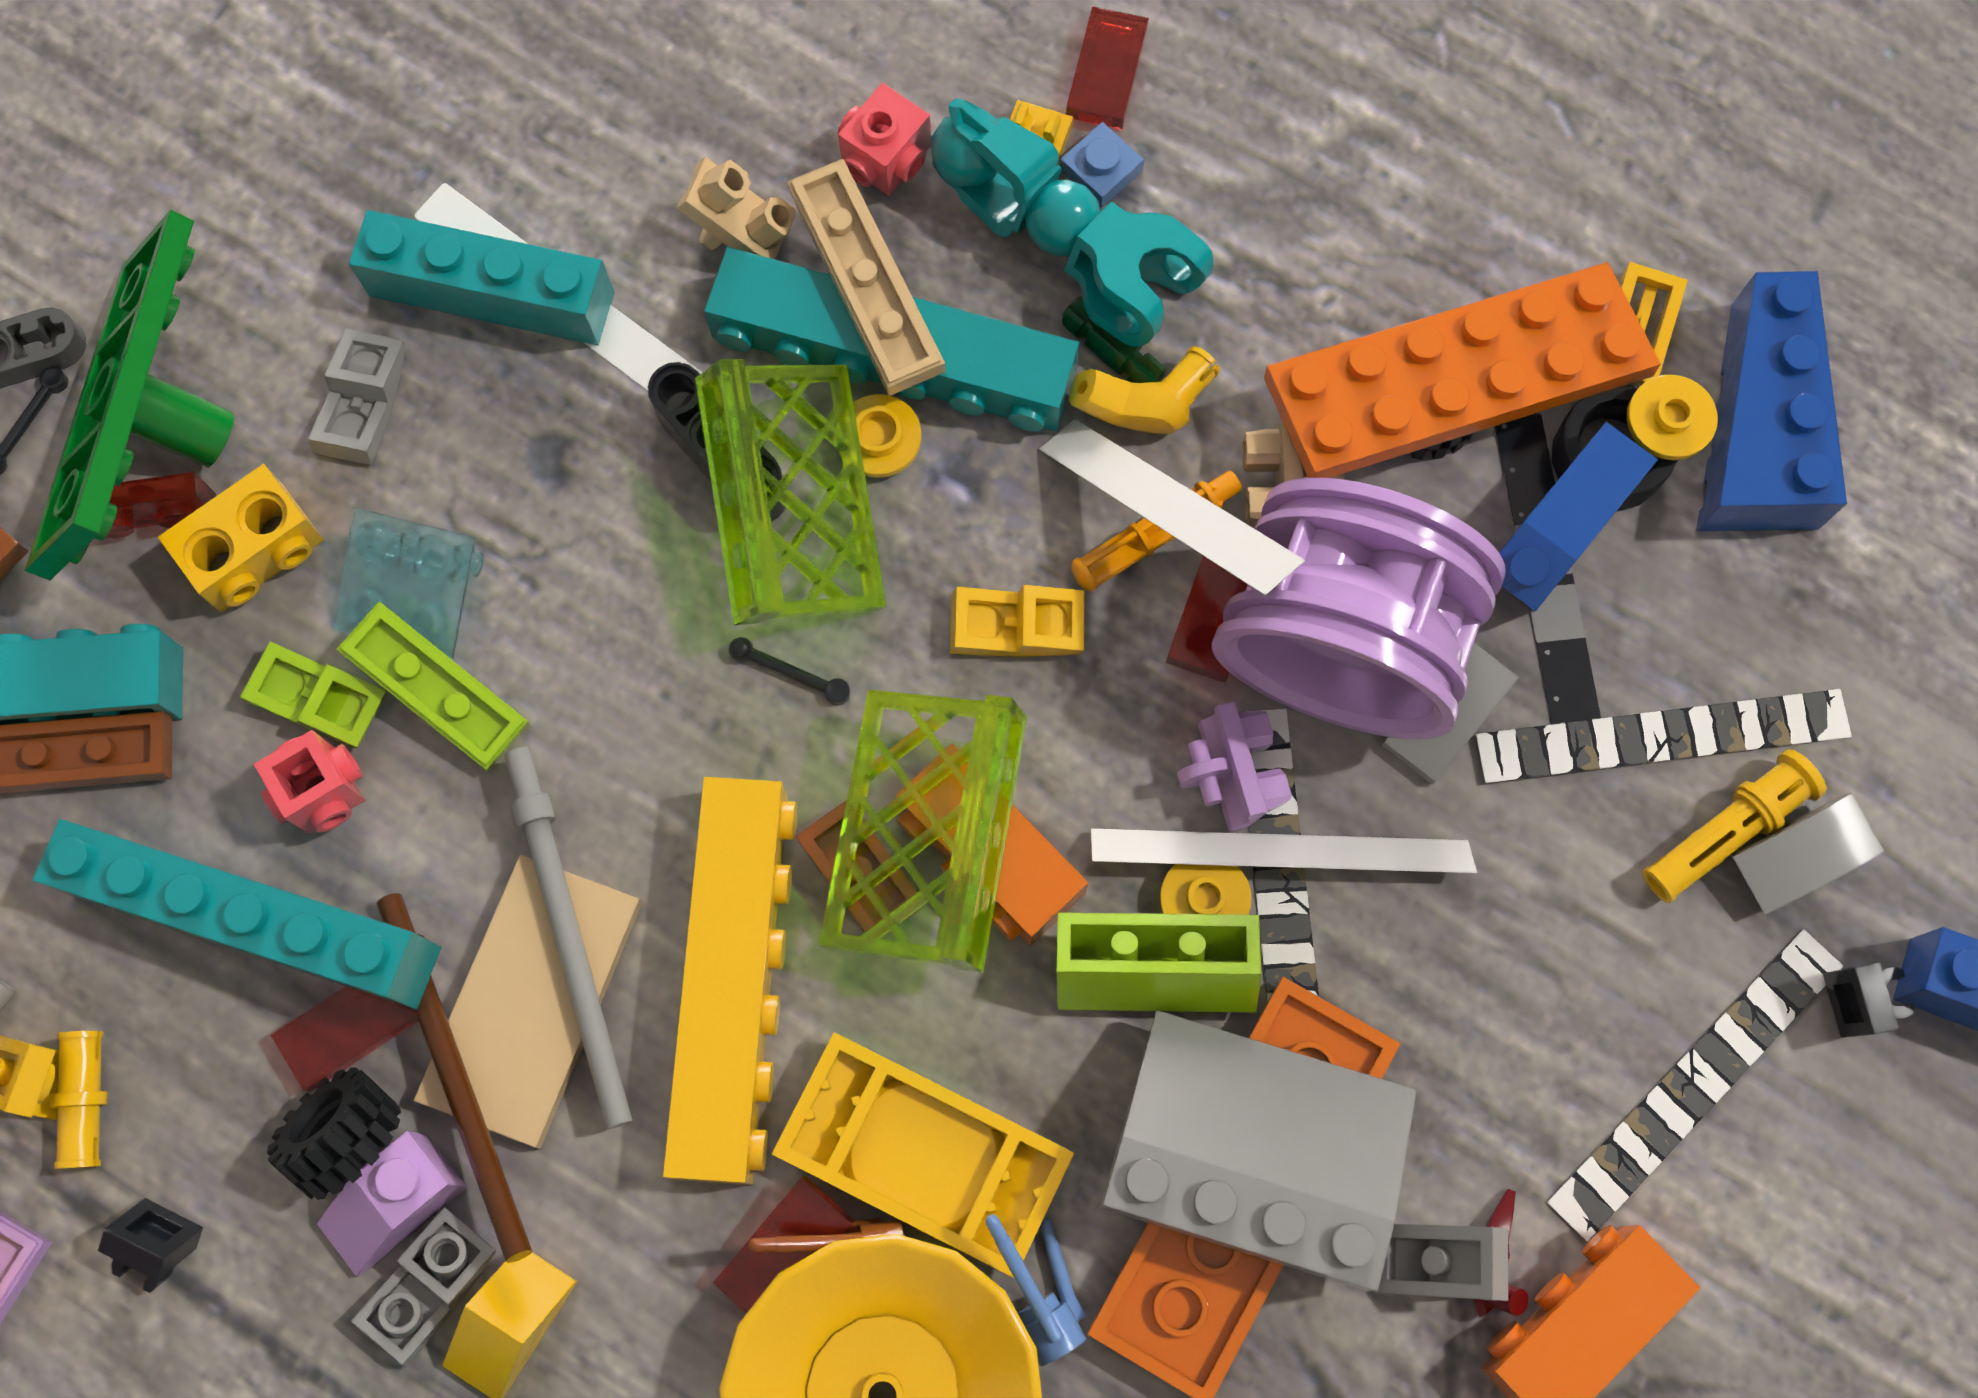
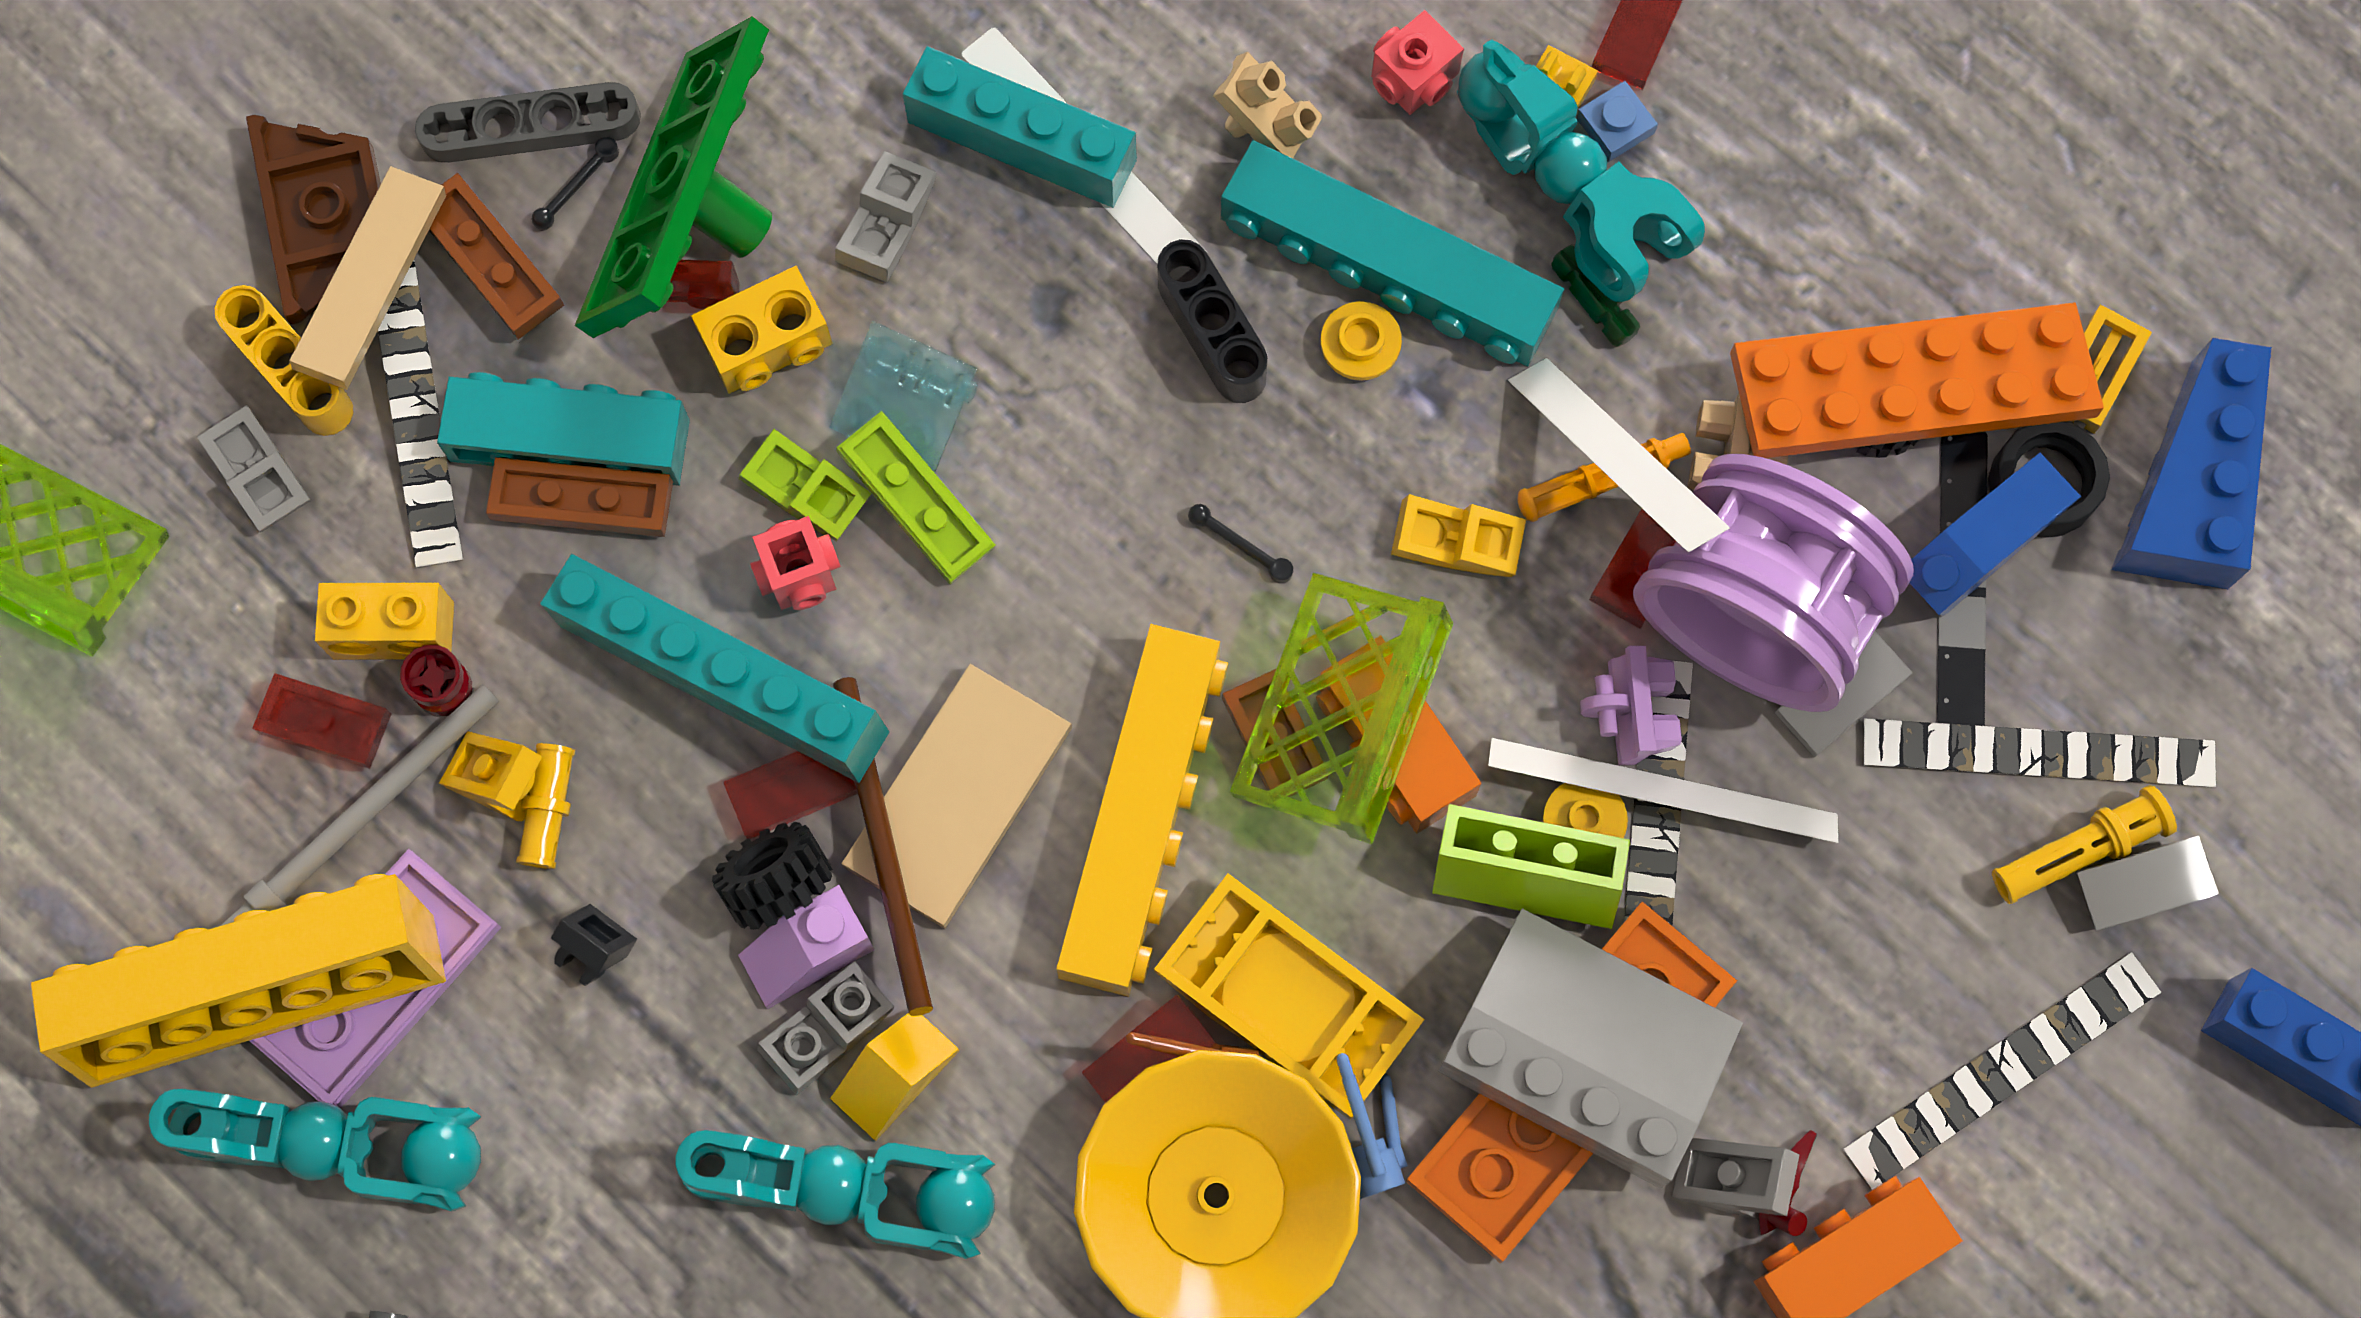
camera: 10 degrees right, 0 degrees up
(534, 815) = (990, 631): light grey bar -> none
(742, 482) = (1230, 369): clear neon green fence -> none
(866, 277) = (1377, 192): tan tile -> none
(1145, 406) = (1617, 359): yellow arm -> none
(1672, 417) = (2103, 459): yellow piece -> none
(1863, 1001) = (2168, 1022): black tile -> none

